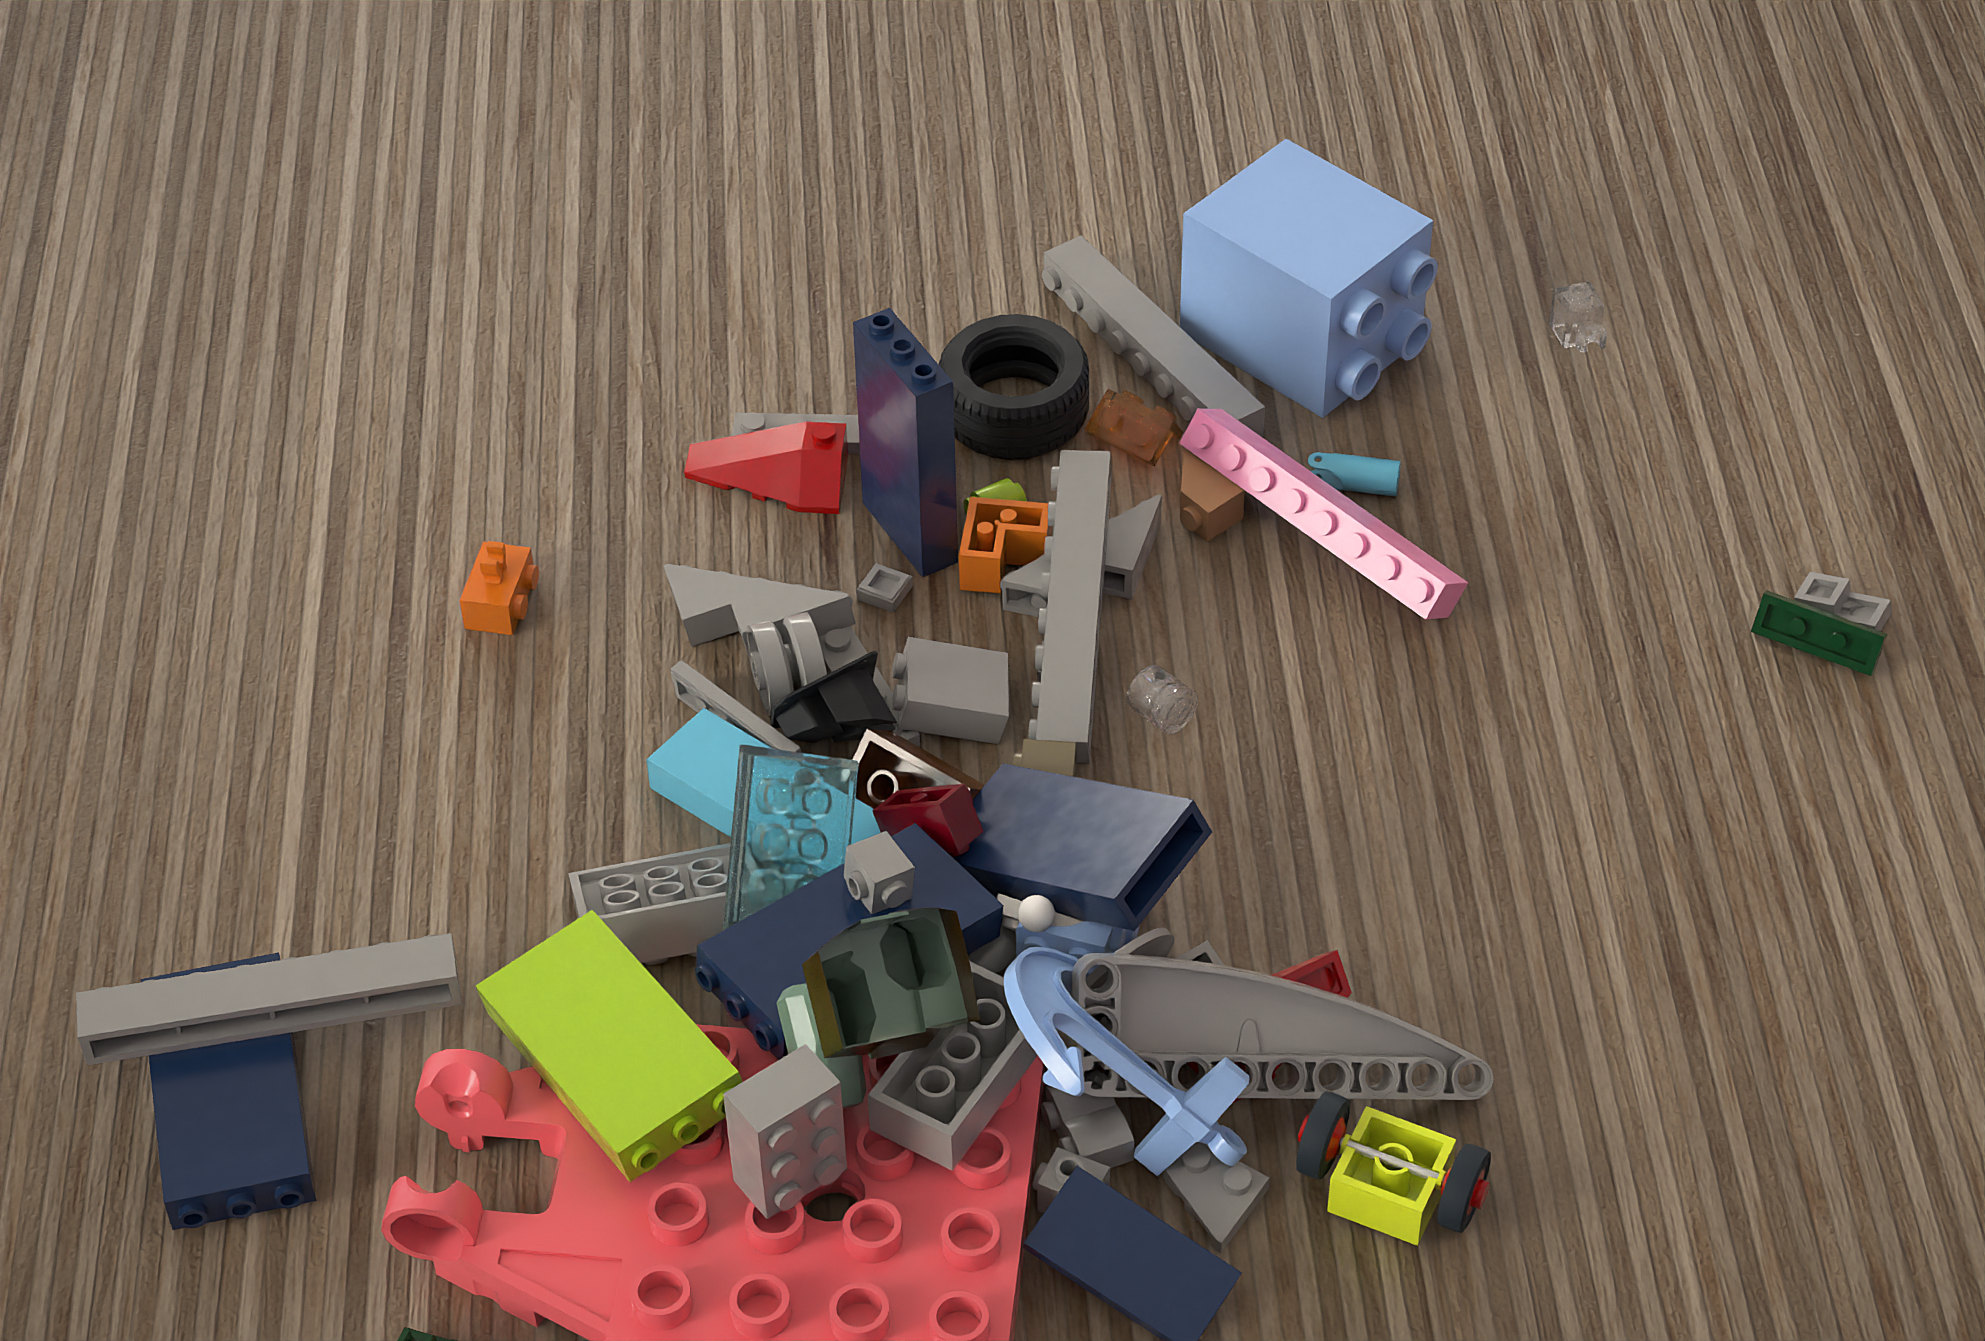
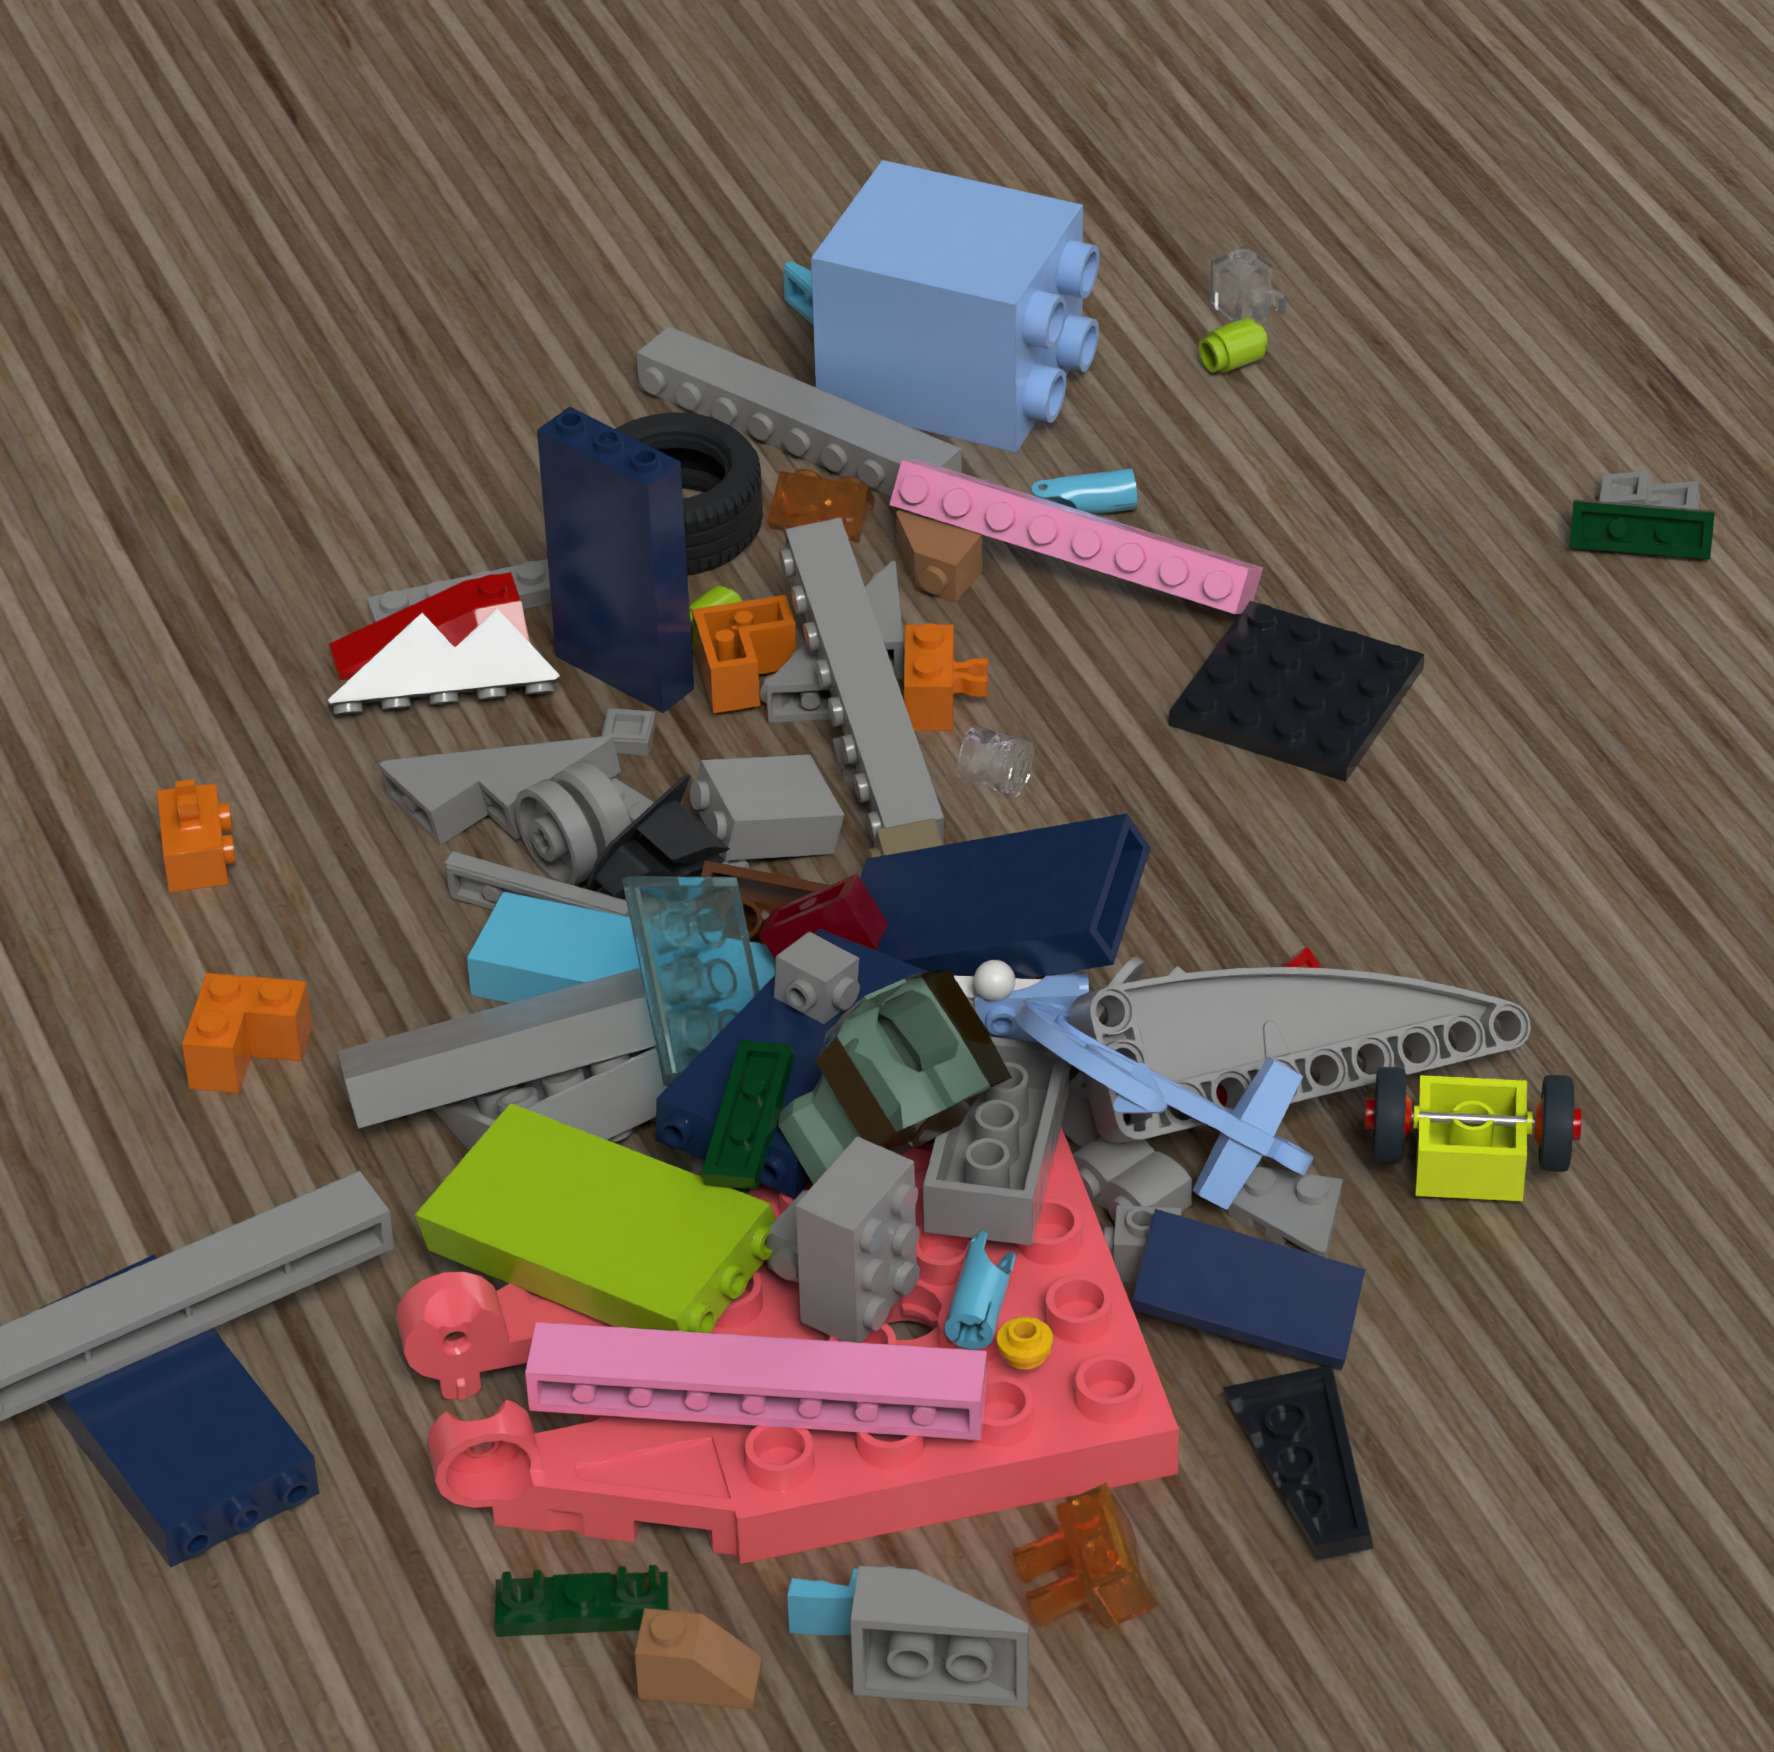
camera: 20 degrees left, 5 degrees down
(447, 762) = (240, 1021): none -> orange brick
(610, 849) = (497, 1048): none -> light grey brick
(665, 1228) = (757, 1380): none -> bright pink brick
(748, 486) = (427, 665): none -> slope
(753, 986) = (748, 1115): none -> dark green plate
(880, 1207) = (978, 1296): none -> medium azure piece
(900, 1271) = (1024, 1342): none -> yellow plate
(1147, 607) = (935, 677): none -> orange brick
(1451, 702) = (1297, 690): none -> black plate
(1544, 368) = (1233, 346): none -> lime brick

